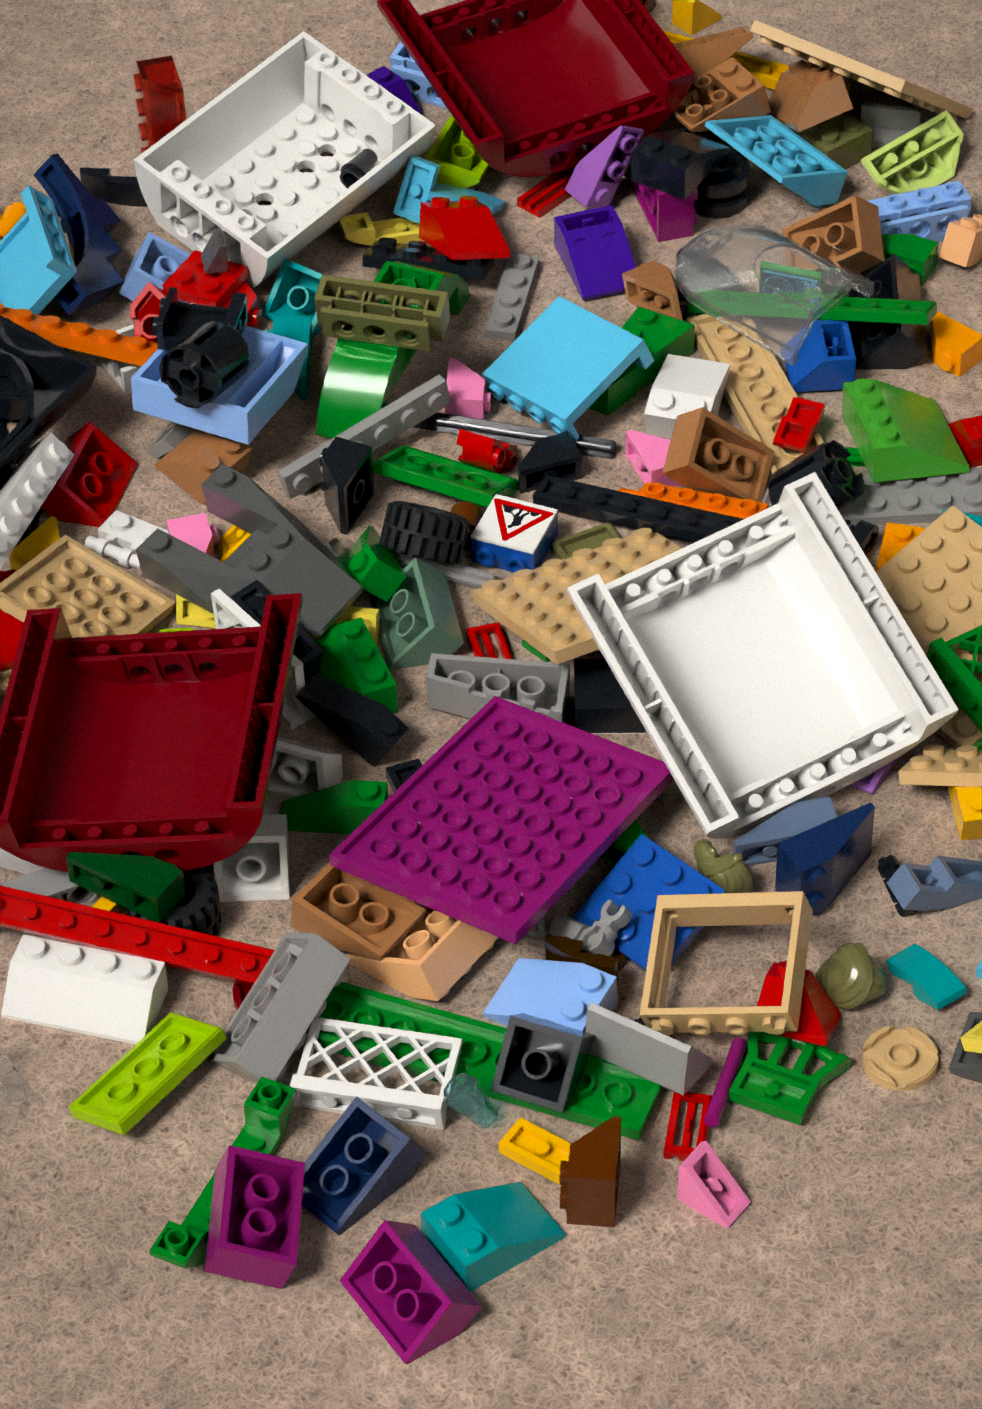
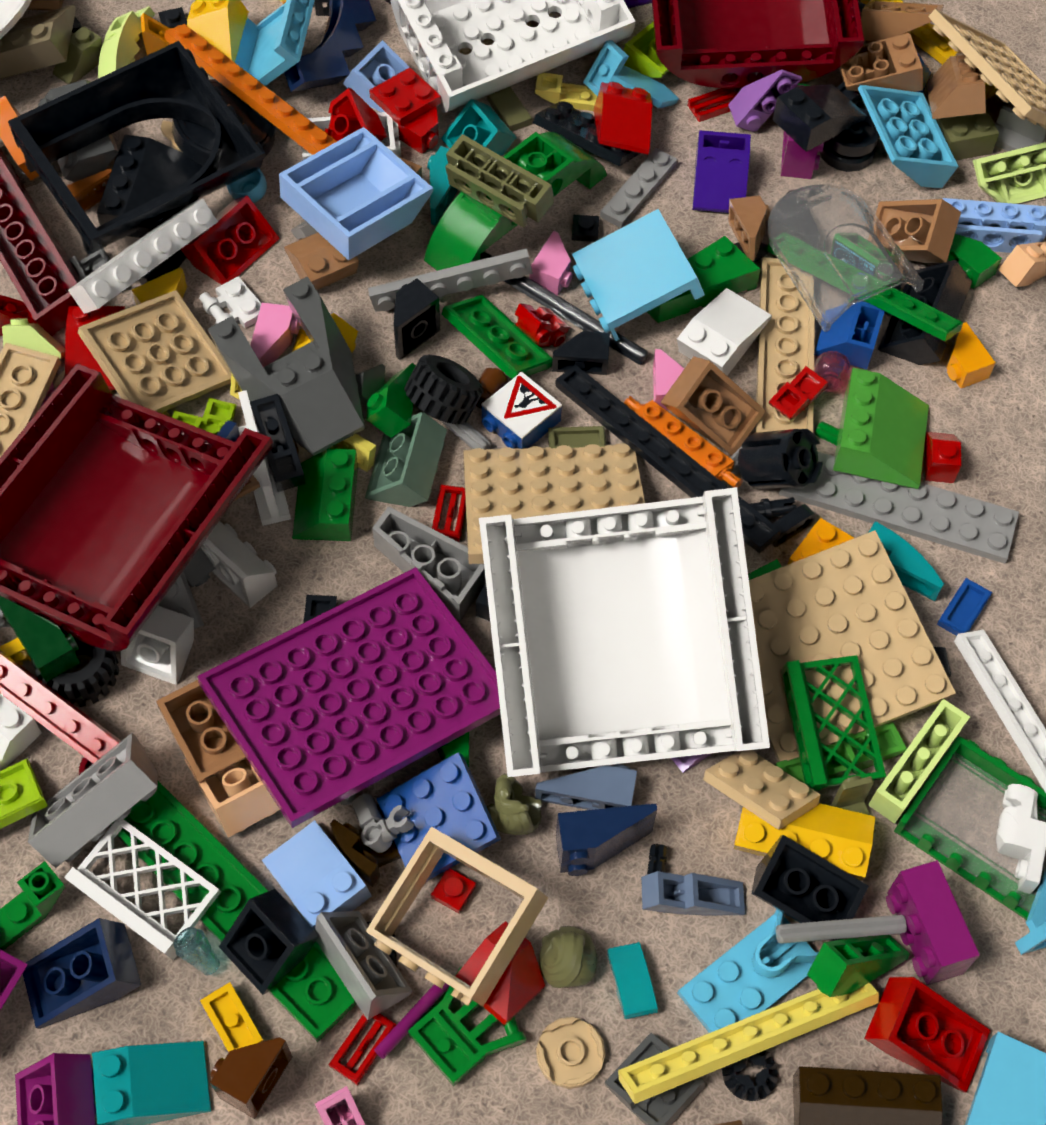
camera: 20 degrees right, 15 degrees up
(73, 420) = (252, 185): none -> medium azure hair
(180, 319) = (355, 144): black panel -> none
(205, 364) = (332, 184): black cylinder -> none
(215, 254) = (417, 78): flat silver slope -> none
(323, 262) = (510, 109): none -> olive tile
(335, 808) = (248, 617): green slope -> none
(354, 717) = (299, 539): black slope -> none
(357, 167) = (566, 35): black cone -> none
(476, 351) = (585, 228): none -> black plate
(699, 969) = (453, 890): none -> red plate
(823, 391) = (834, 369): none -> clear pink head

